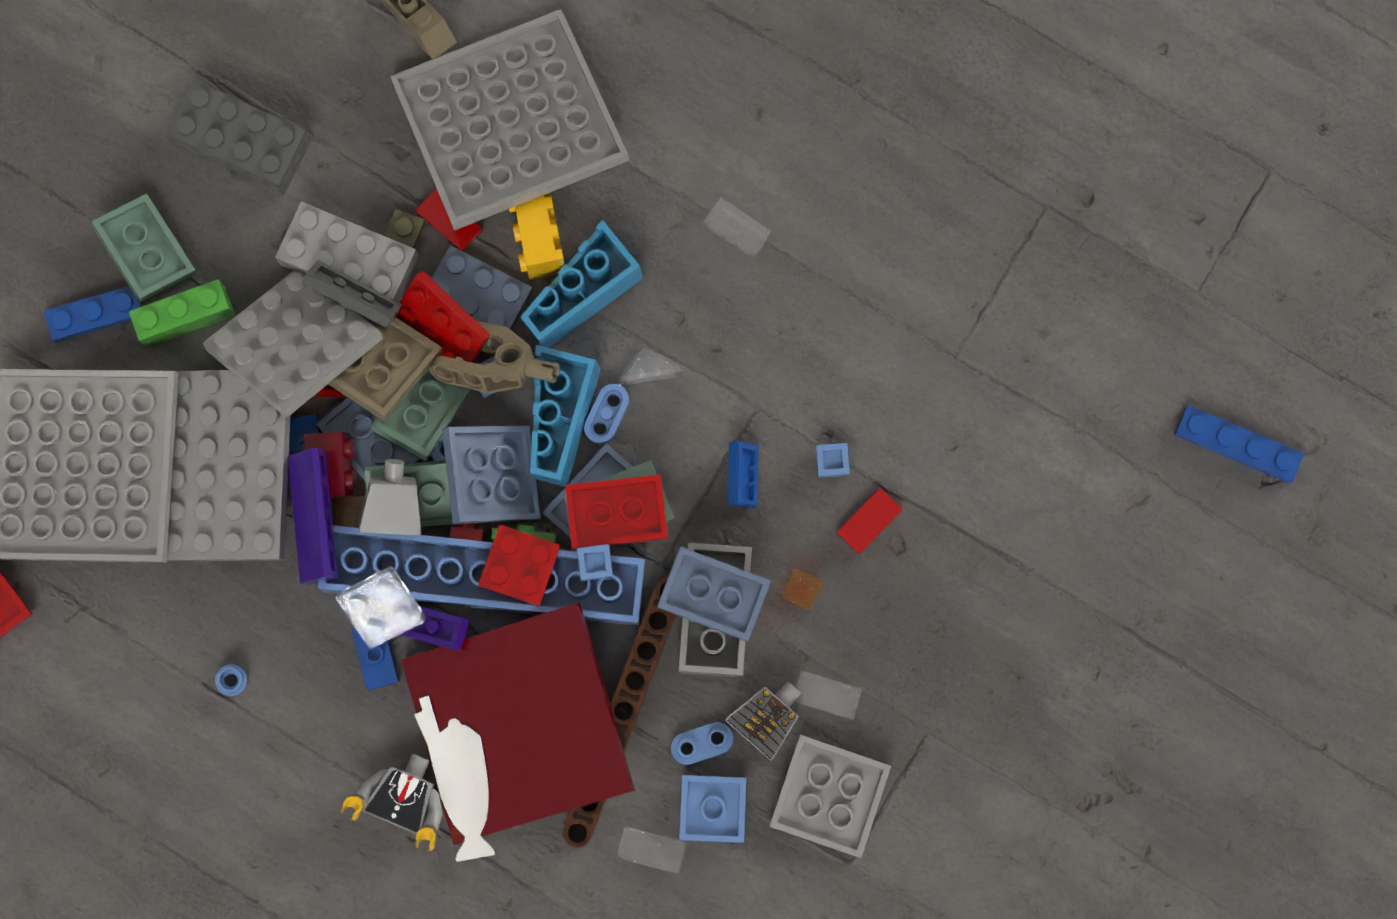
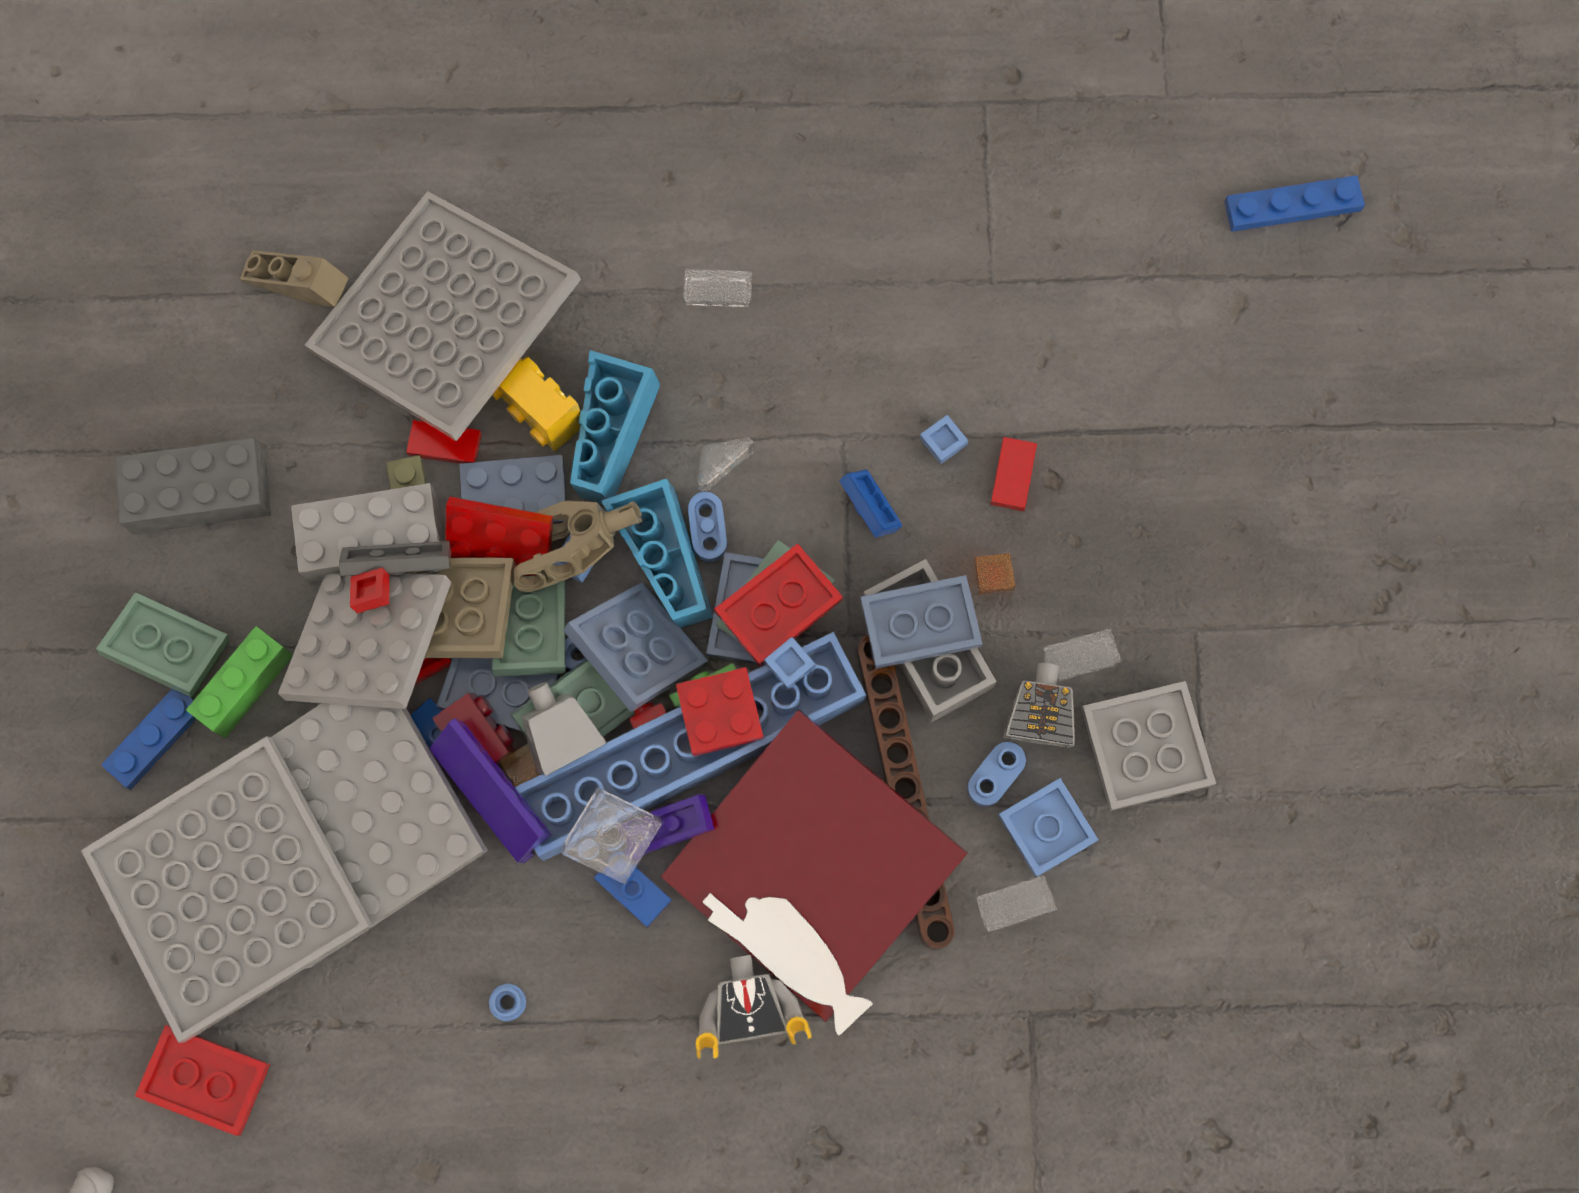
camera: 25 degrees left, 5 degrees down
(316, 308) = (369, 590): none -> red plate

